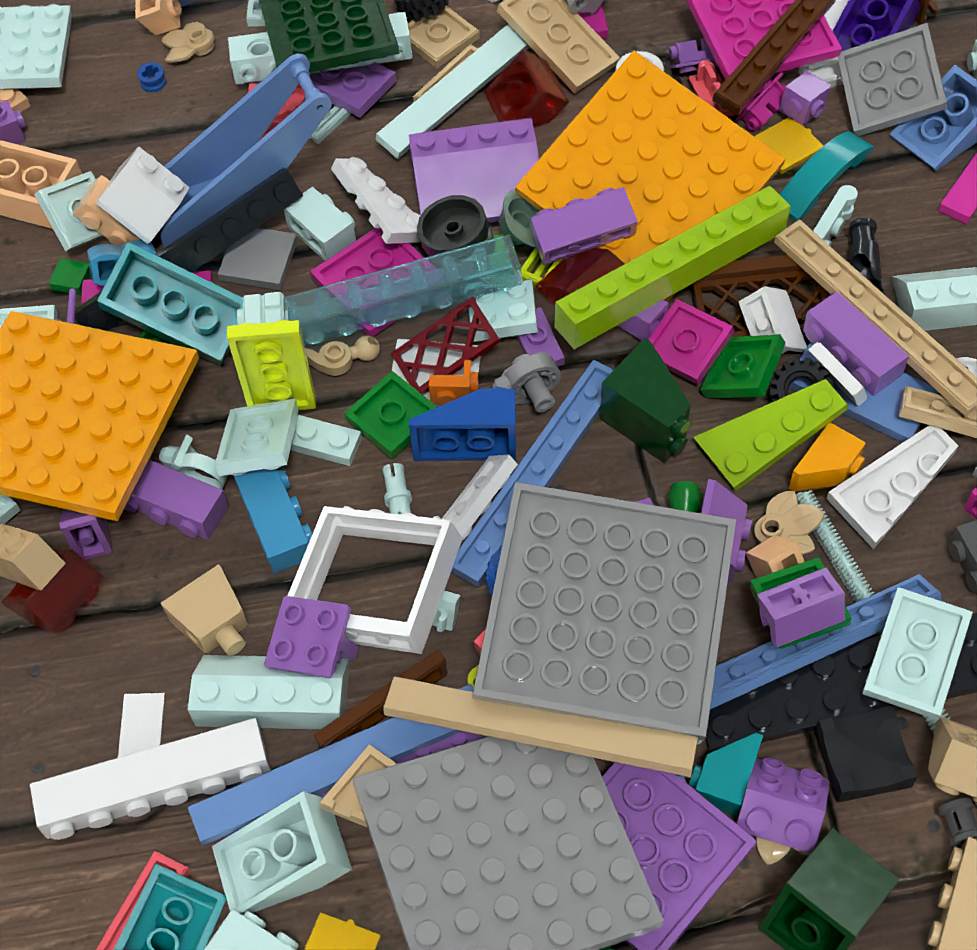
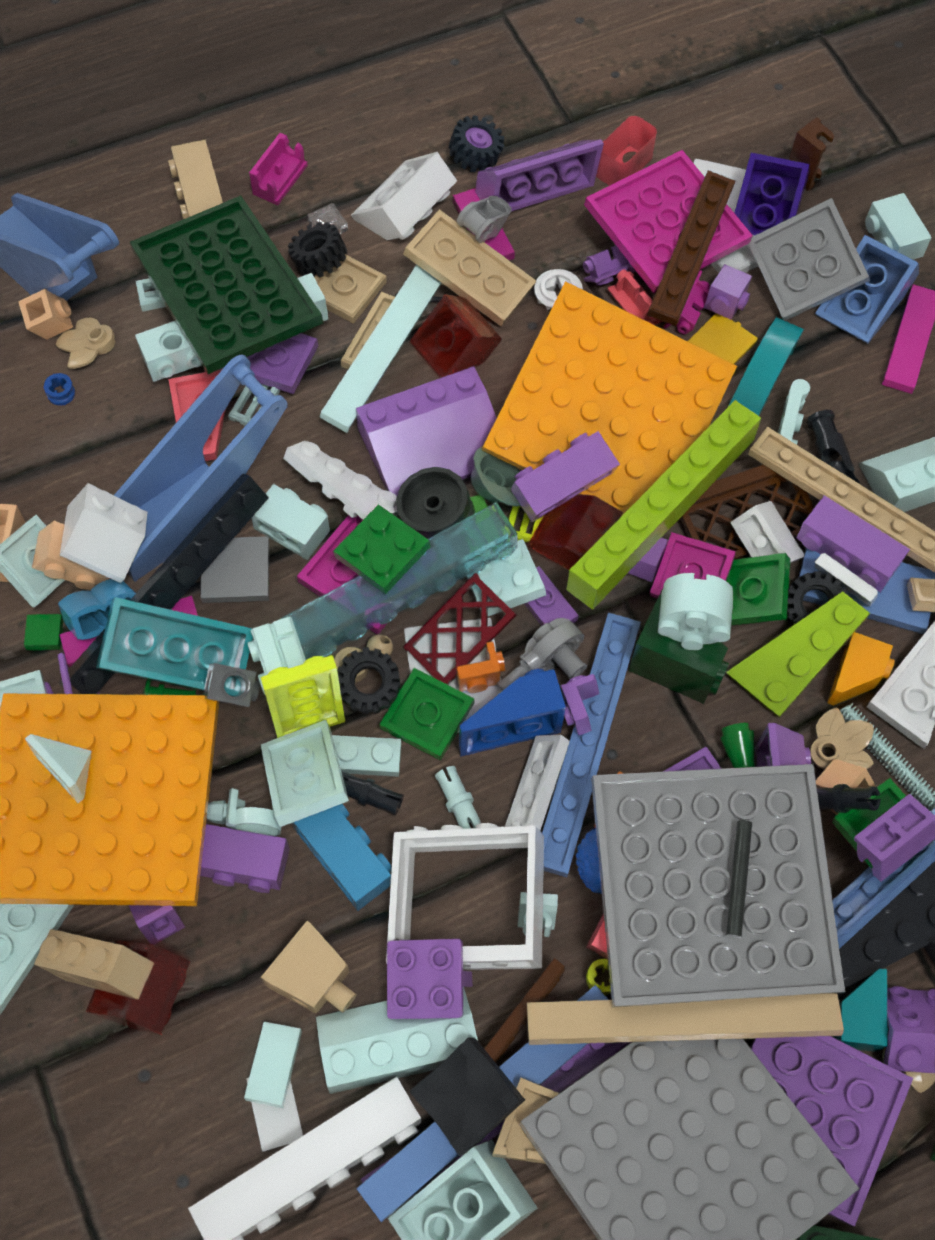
camera: 20 degrees left, 5 degrees up
(39, 372) = (64, 762): none -> light aqua slope
(150, 686) = (273, 1064): none -> light aqua tile
(201, 333) = (215, 682): none -> dark grey brick
(312, 744) = (467, 1095): none -> black brick
(315, 472) = (374, 795): none -> black pin
(337, 352) = (368, 660): none -> black tyre
(388, 255) = (382, 549): none -> green plate
(533, 421) = (574, 693): none -> medium lavender bracket
(628, 606) = (739, 879): none -> pearl dark grey bar
(662, 357) = (696, 610): none -> light aqua brick
(763, 563) = (844, 798): none -> black pin

